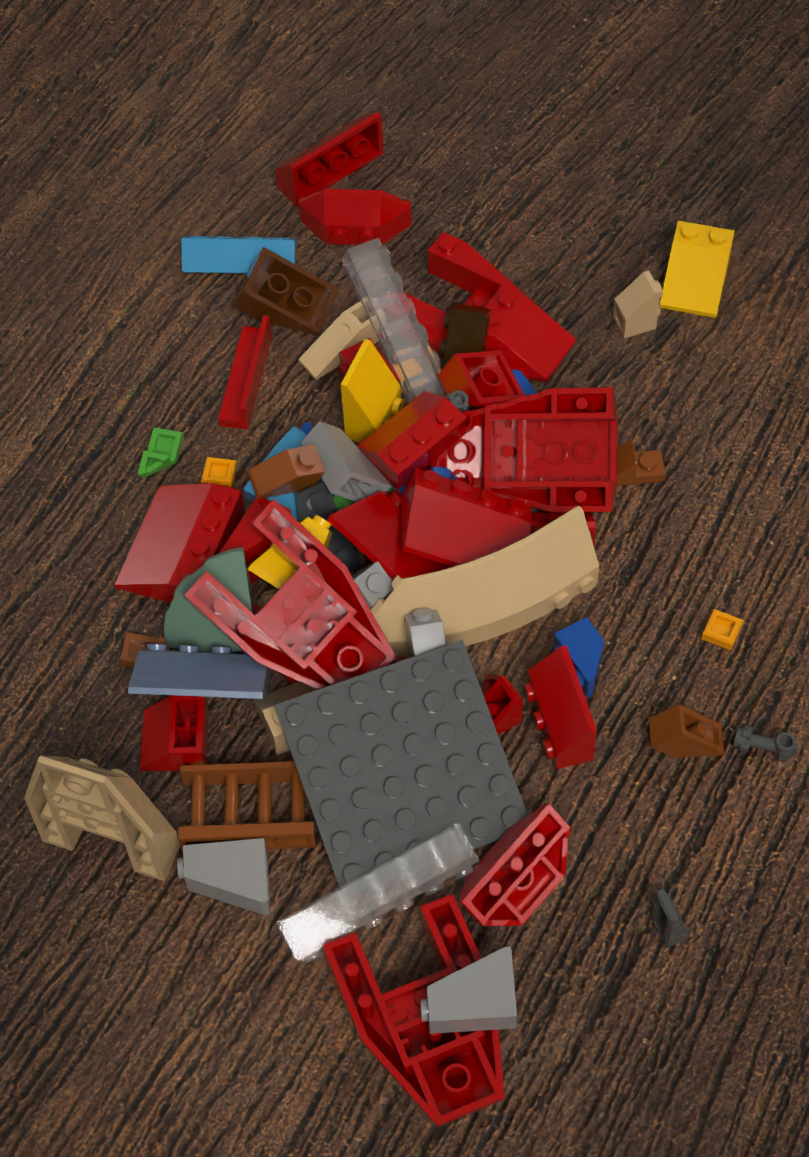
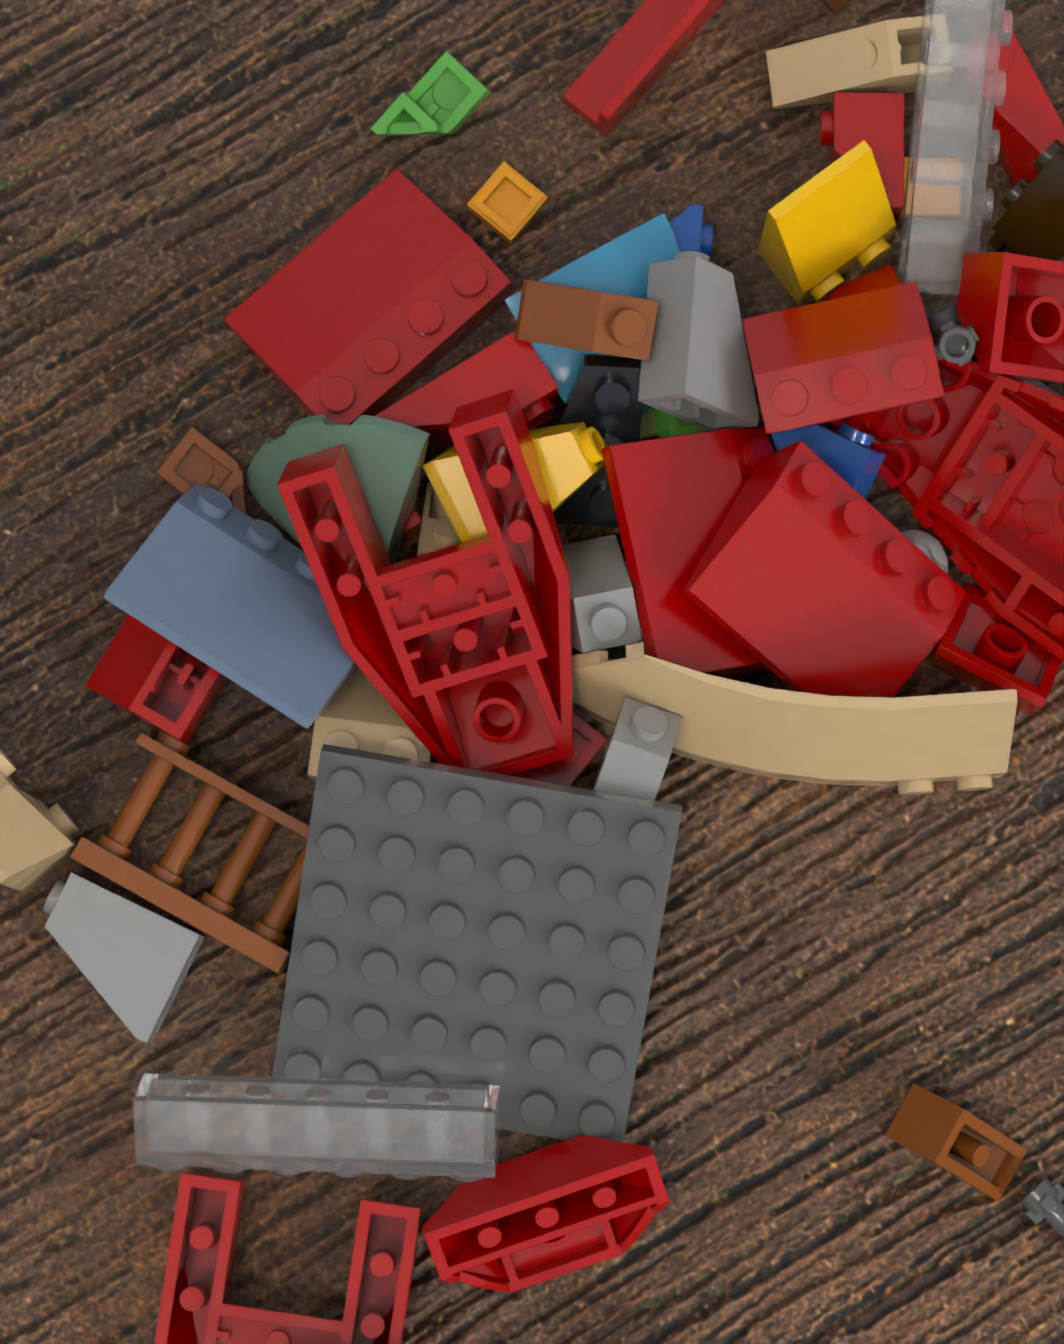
camera: 30 degrees right, 25 degrees up
(502, 701) = (696, 905): red slope -> none
(561, 710) = (782, 987): red slope -> none
(585, 651) = (886, 901): blue slope -> none

